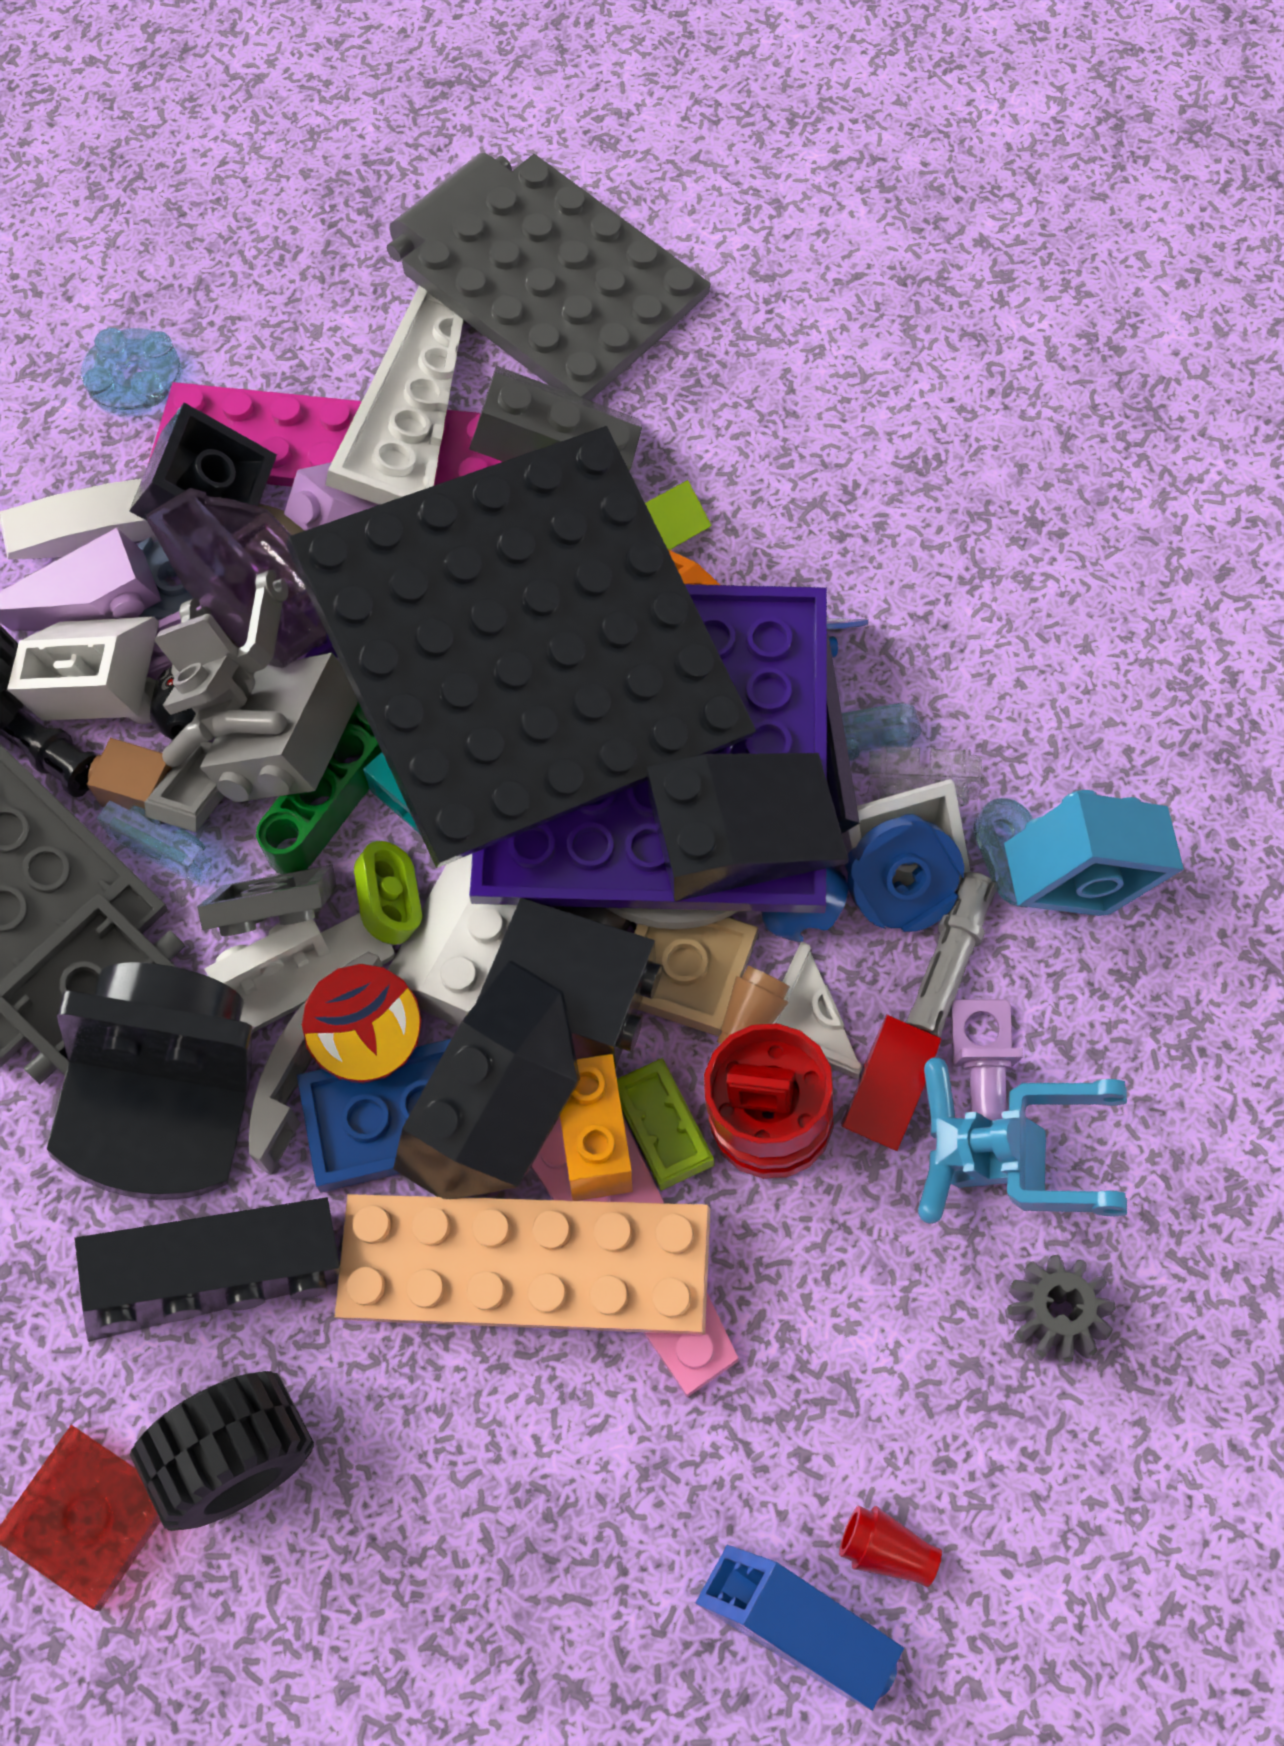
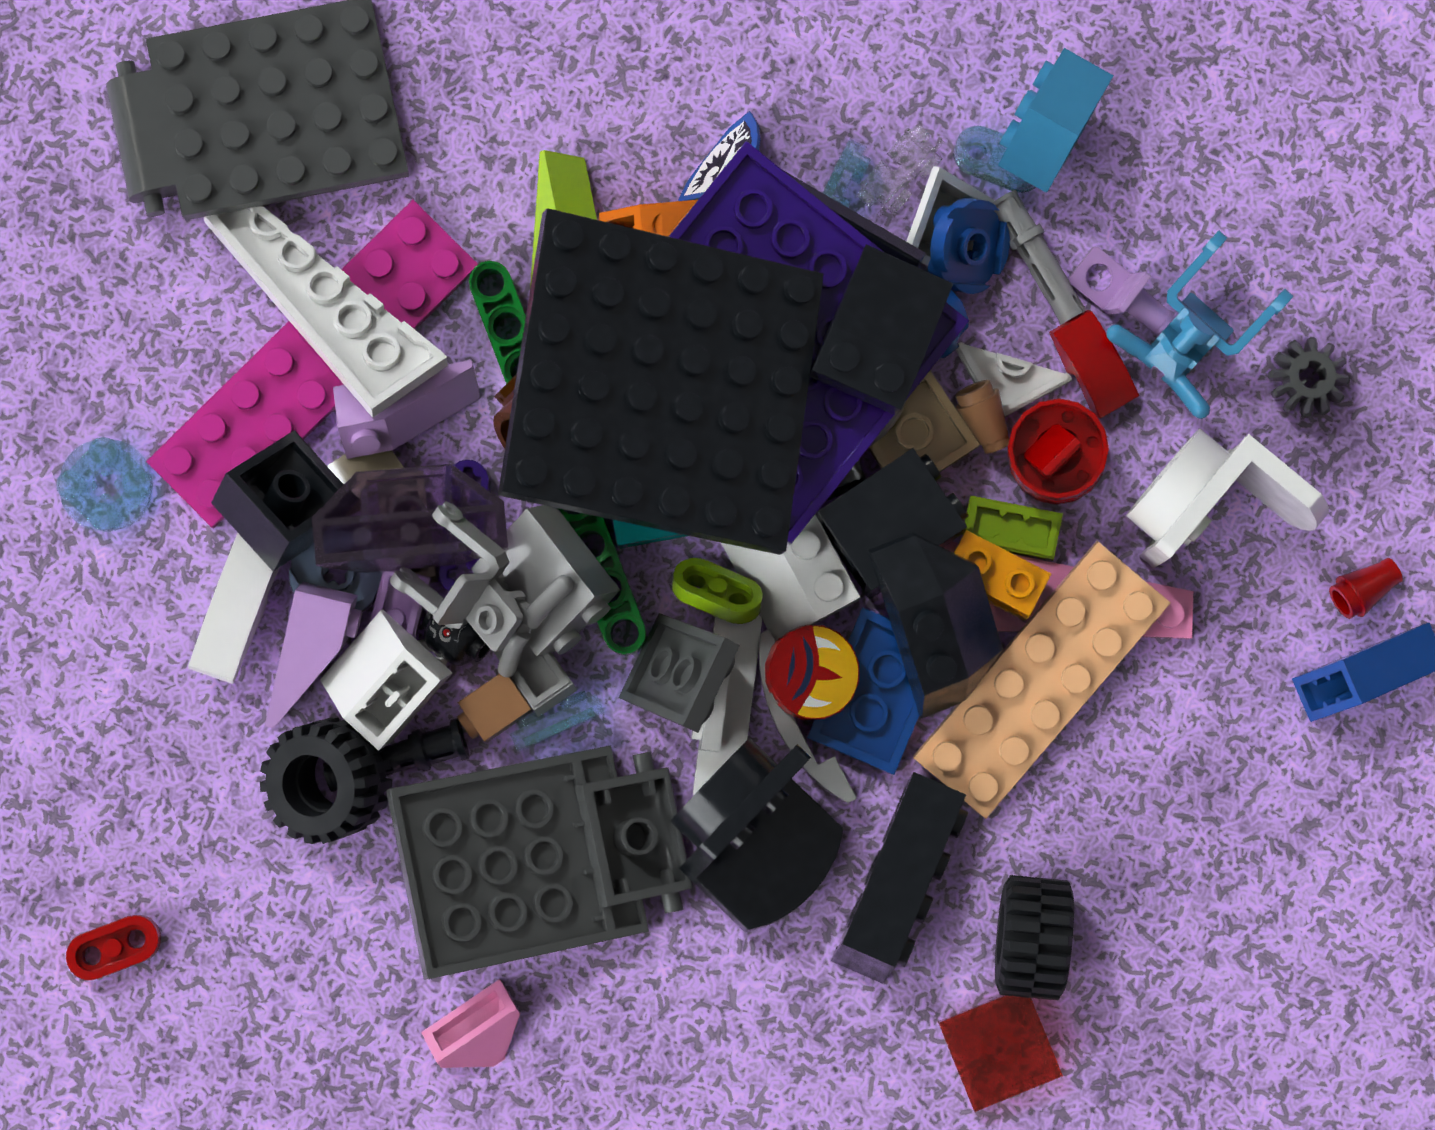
camera: 55 degrees left, 20 degrees up
(531, 415) = (431, 210): dark grey slope -> none
(849, 1256) = (1197, 477): none -> white piece

